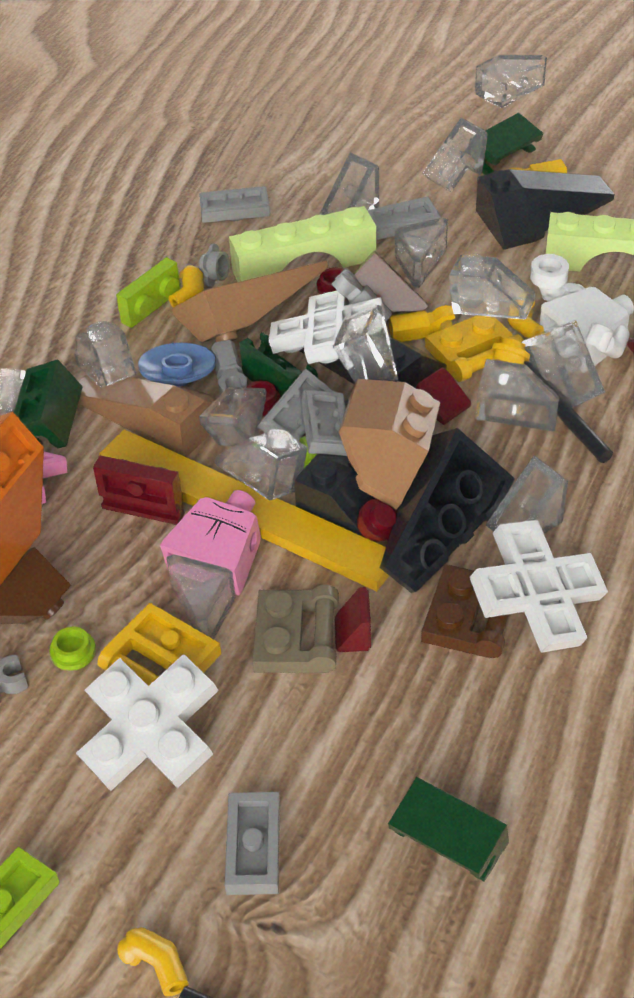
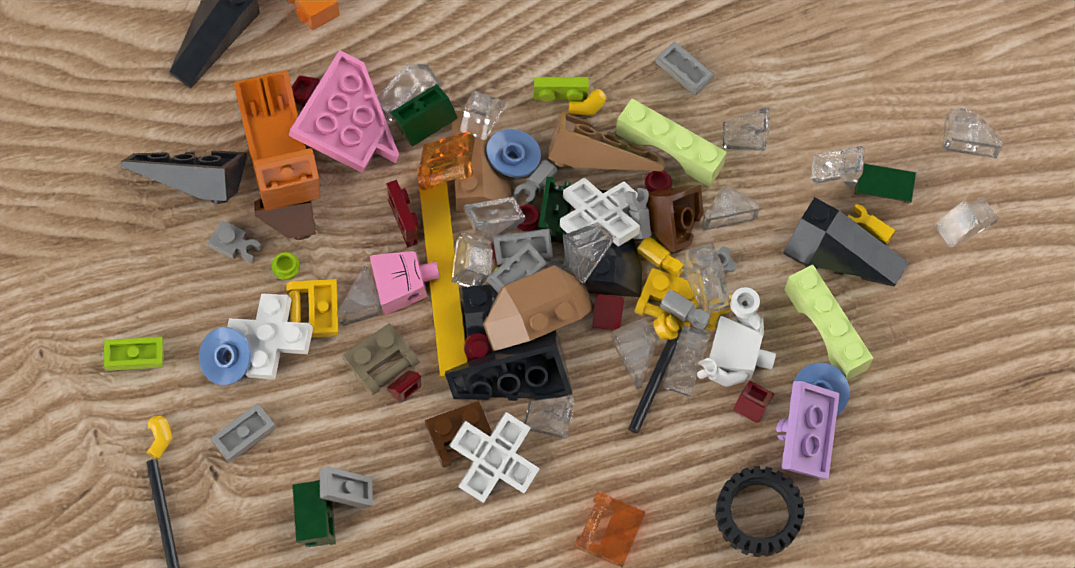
camera: 45 degrees right, 20 degrees up
(99, 788) = (214, 356): none -> medium blue dish
(118, 401) = (444, 153): none -> clear orange plate
(214, 265) = (614, 103): light grey plate -> none
(401, 215) = (754, 175): light grey plate -> none
(446, 763) = (346, 487): none -> light grey plate
(508, 325) = (684, 310): none -> light grey bar
(593, 122) = (966, 221): none -> clear slope

